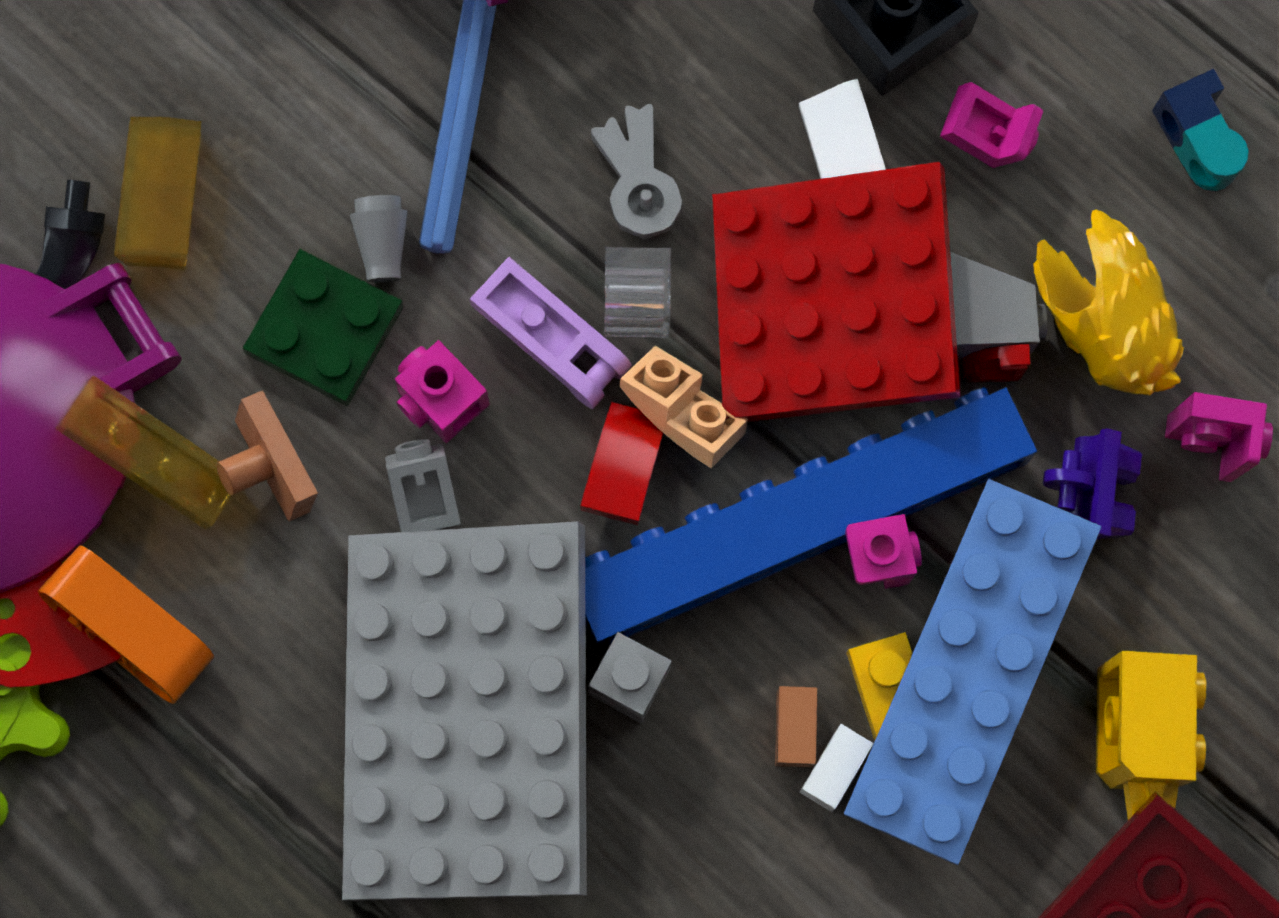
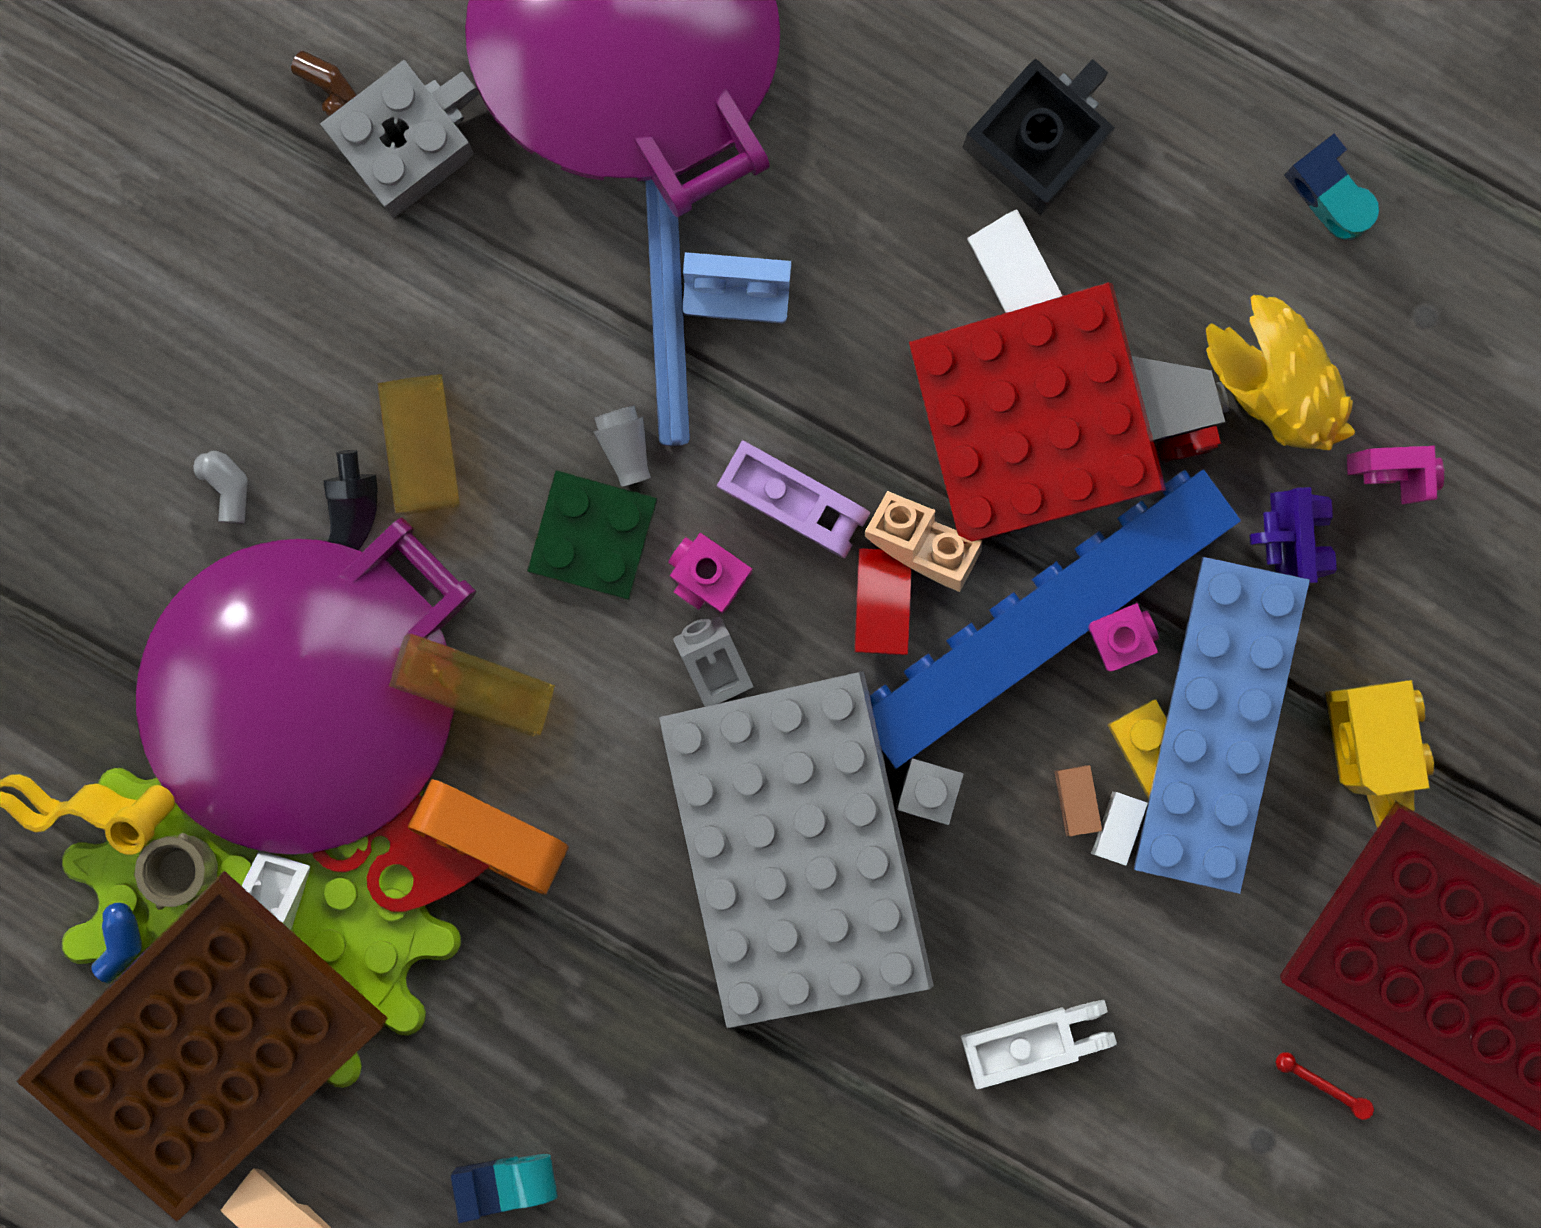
camera: 10 degrees left, 10 degrees up
(268, 458) = (574, 667): nougat tile -> none
(539, 96) = (736, 287): none -> light blue bracket
(637, 292) = (862, 448): clear piece -> none
(644, 198) = (849, 357): light grey piece -> none
(991, 127) = (1144, 226): dark pink bracket -> none

